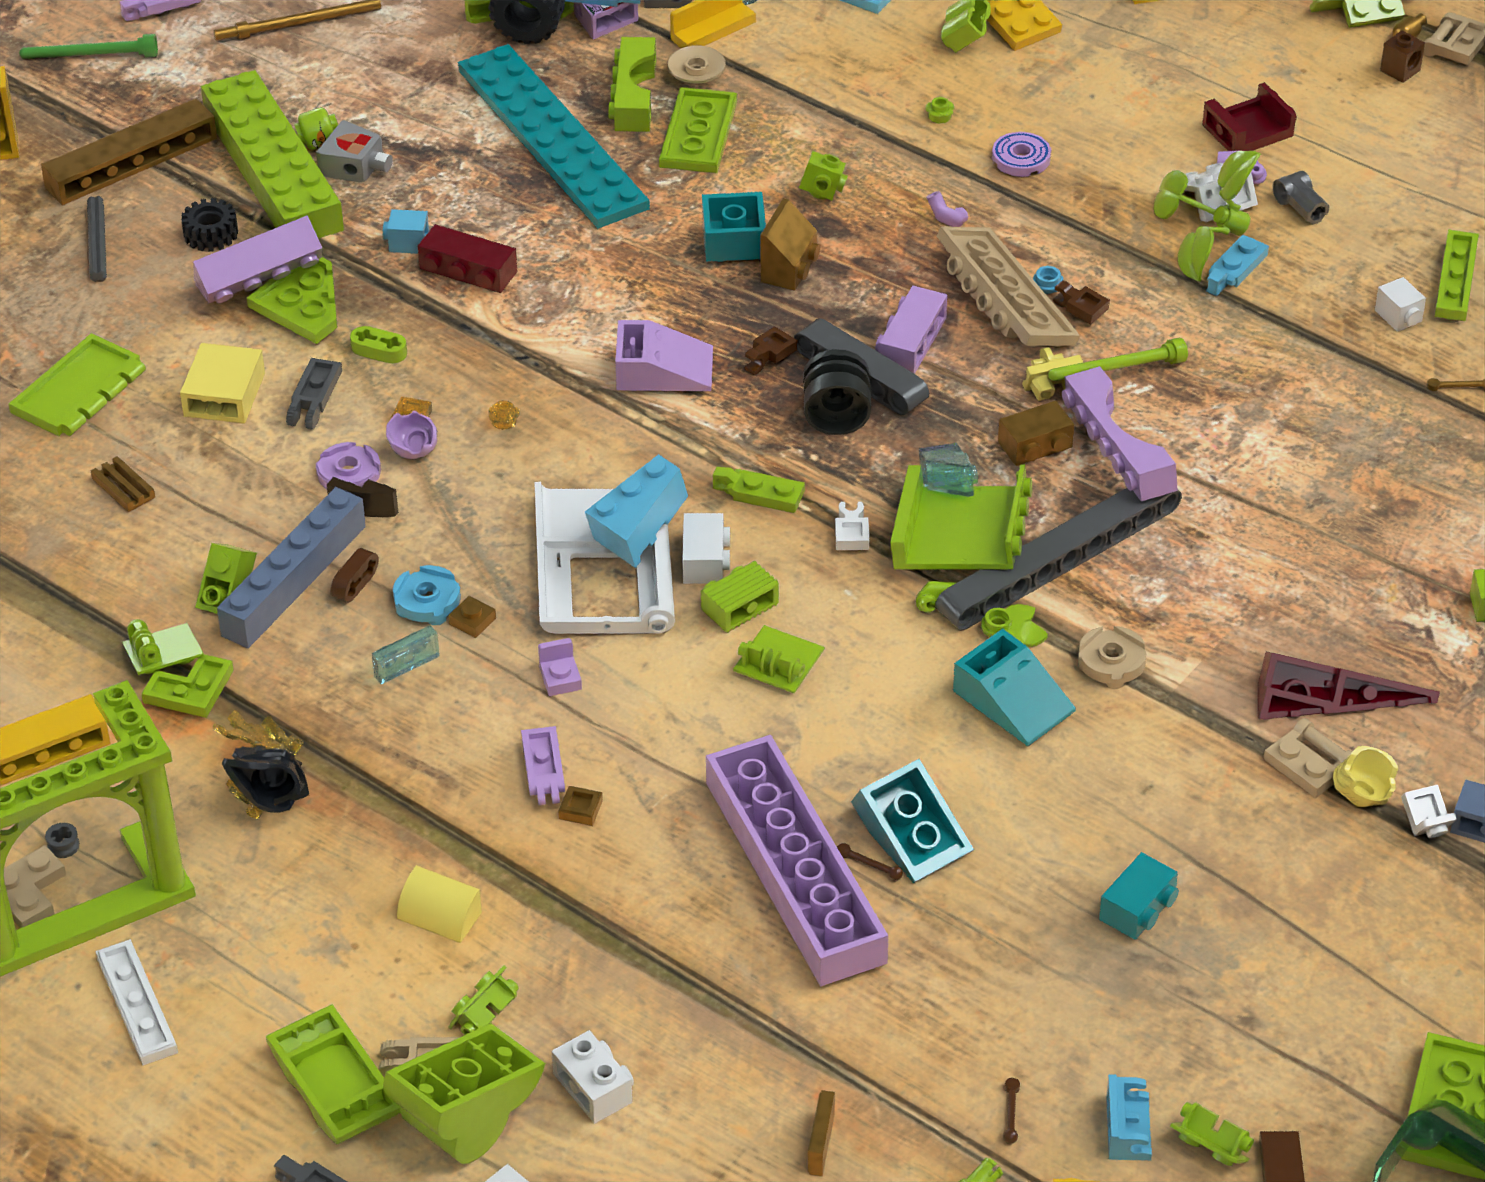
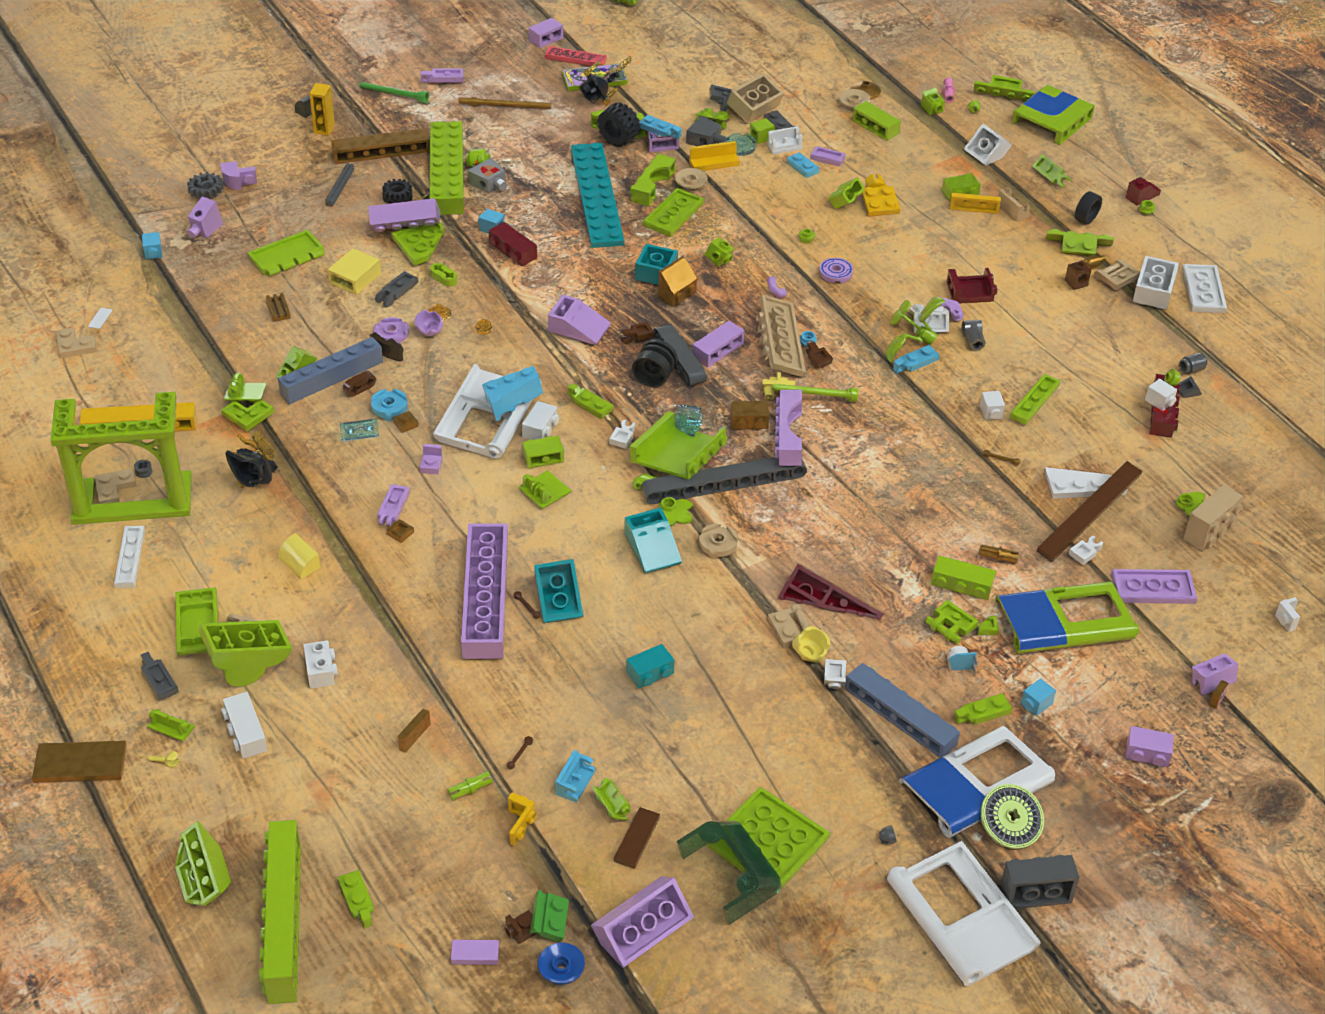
camera: 20 degrees right, 0 degrees up
(492, 991) = (297, 606): lime hinge -> none

